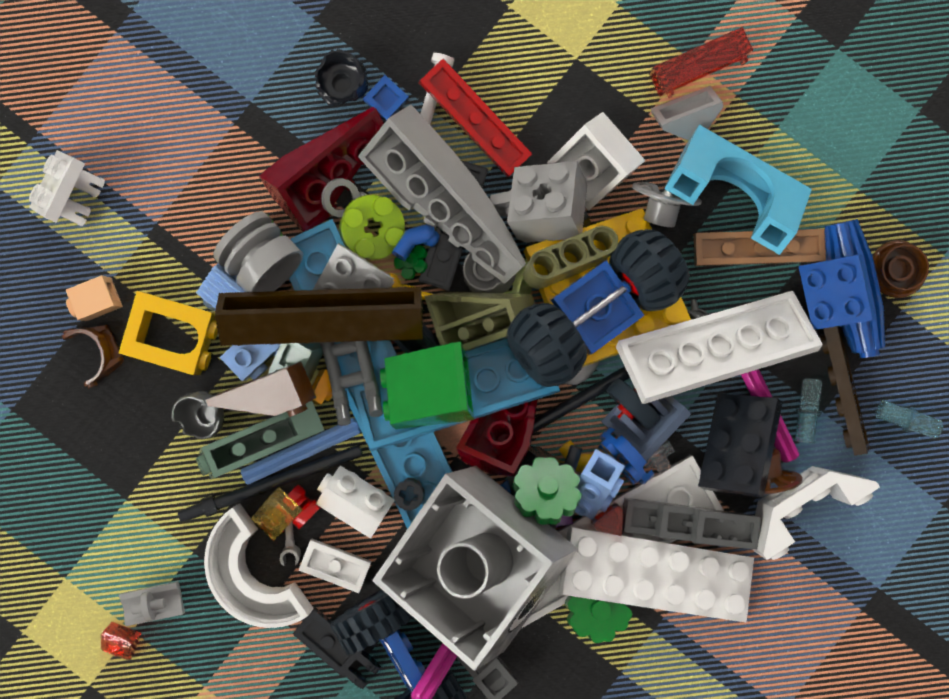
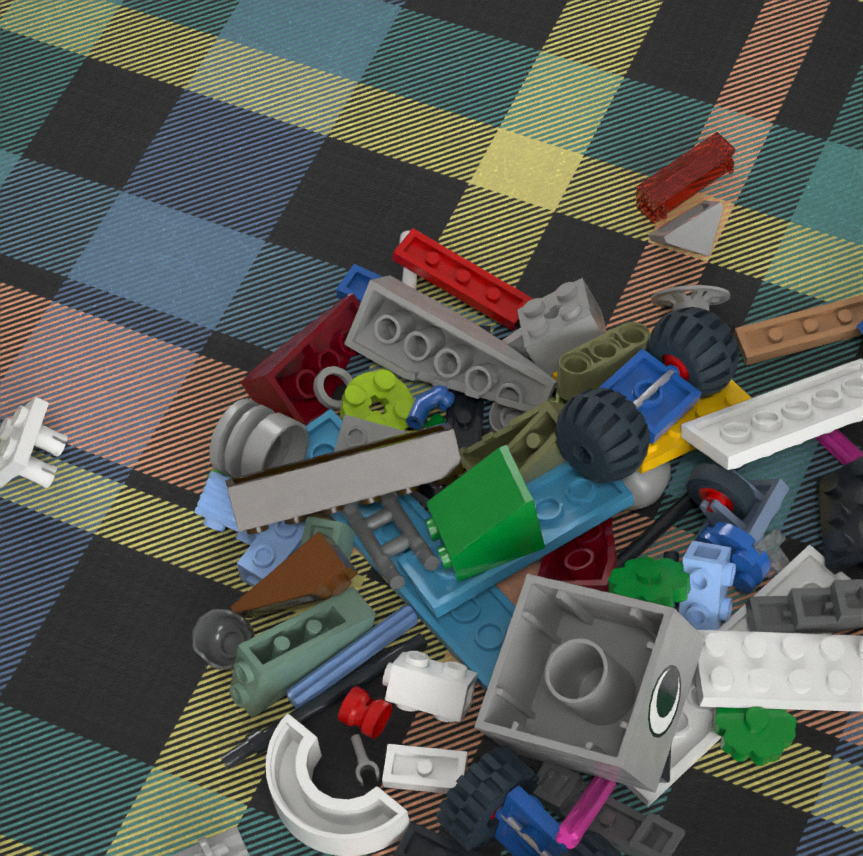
camera: 10 degrees left, 30 degrees down
(93, 298) = (76, 552): light nougat brick -> none
(108, 348) = (91, 590): reddish brown helmet -> none
(138, 324) = (202, 585): yellow panel -> none
(276, 513) = (341, 717): clear yellow plate -> none
(322, 387) = (366, 576): light orange plate -> none
(341, 78) = (307, 274): black hair -> none
(400, 497) = (486, 642): black bush -> none
(602, 155) = (614, 281): white slope -> none
(610, 521) = (736, 618): clear red slope -> none
(777, 196) = (722, 256): medium azure arch -> none

